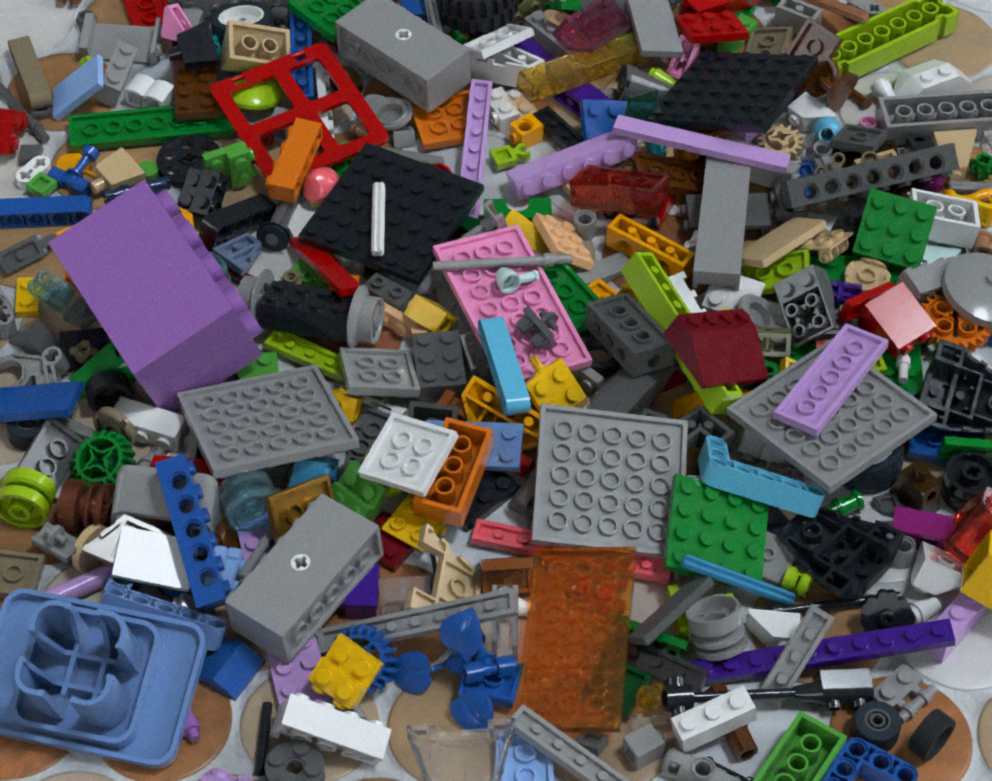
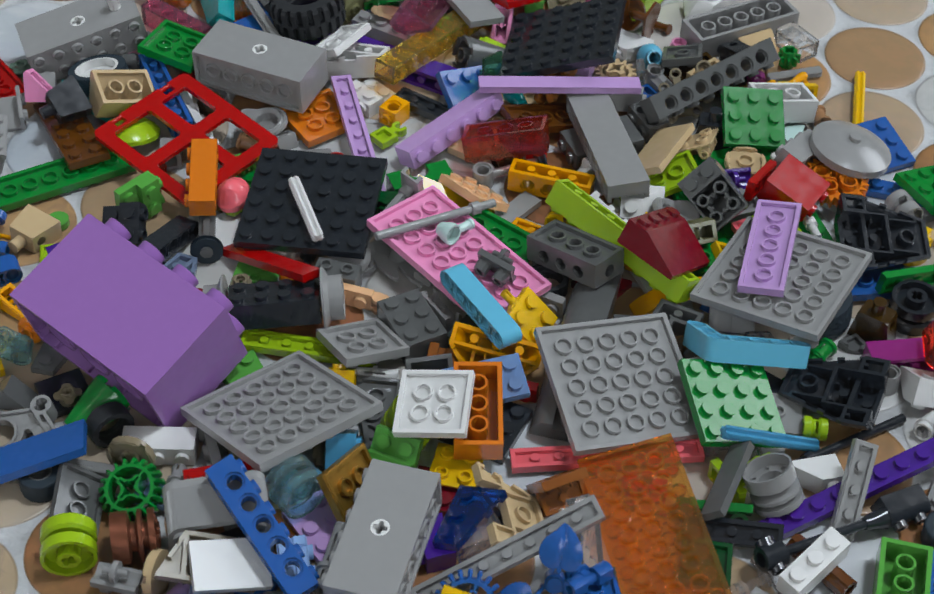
camera: 20 degrees left, 5 degrees down
(148, 93) = (29, 153): white brick -> none
(154, 184) = (47, 240): dark blue pin -> none
(182, 156) = (89, 202): black wedge -> none
(256, 554) = (321, 532): light grey bar -> none
(400, 568) = (464, 514): none -> clear blue wing
(430, 314) = (385, 281): yellow slope -> none
(649, 696) = (745, 568): clear yellow cone -> none
(881, 88) = (676, 15): white cone -> none
(884, 611) = (904, 432): black plant -> none

